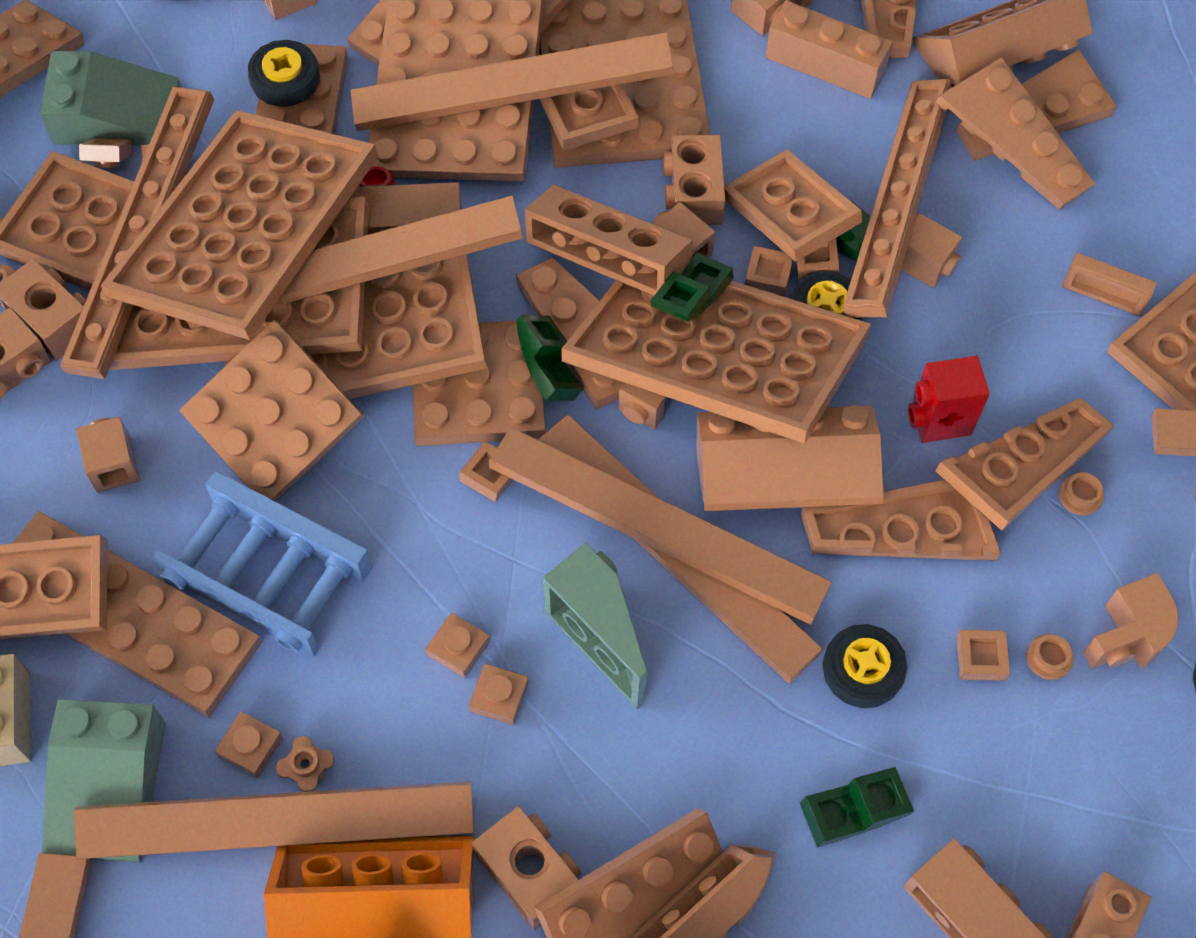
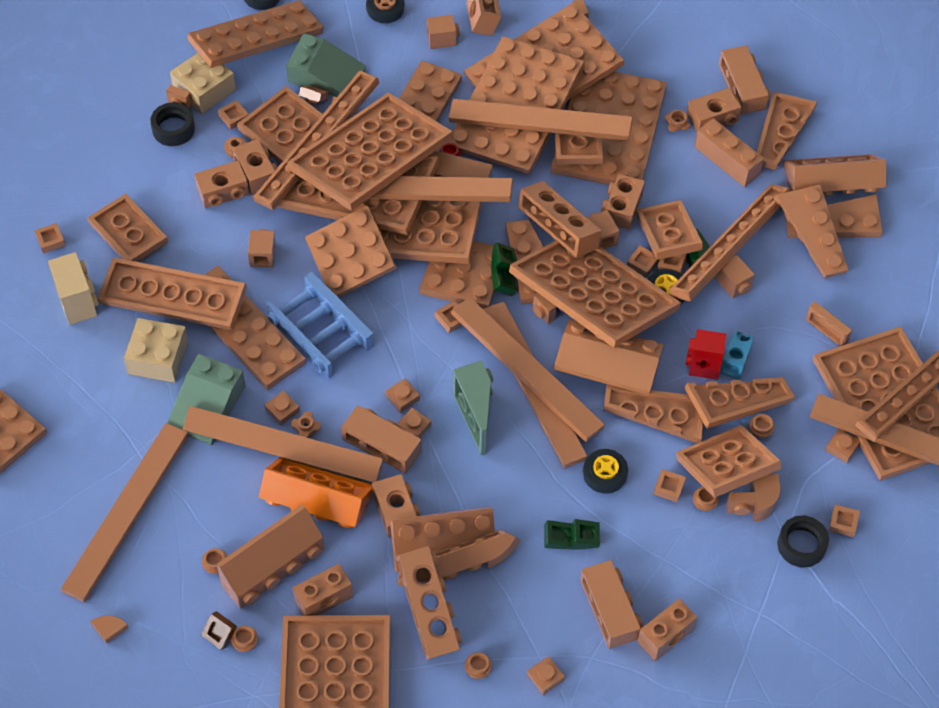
camera: 20 degrees right, 5 degrees down
(283, 73) = (421, 79): black wheel -> none
(453, 743) = (381, 438): none -> nougat brick
(694, 289) = (593, 257): dark green slope -> none
(723, 22) = (677, 120): none -> nougat plate
(999, 379) = (736, 355): none -> dark azure leg
(1067, 579) = (728, 461): none -> nougat plate

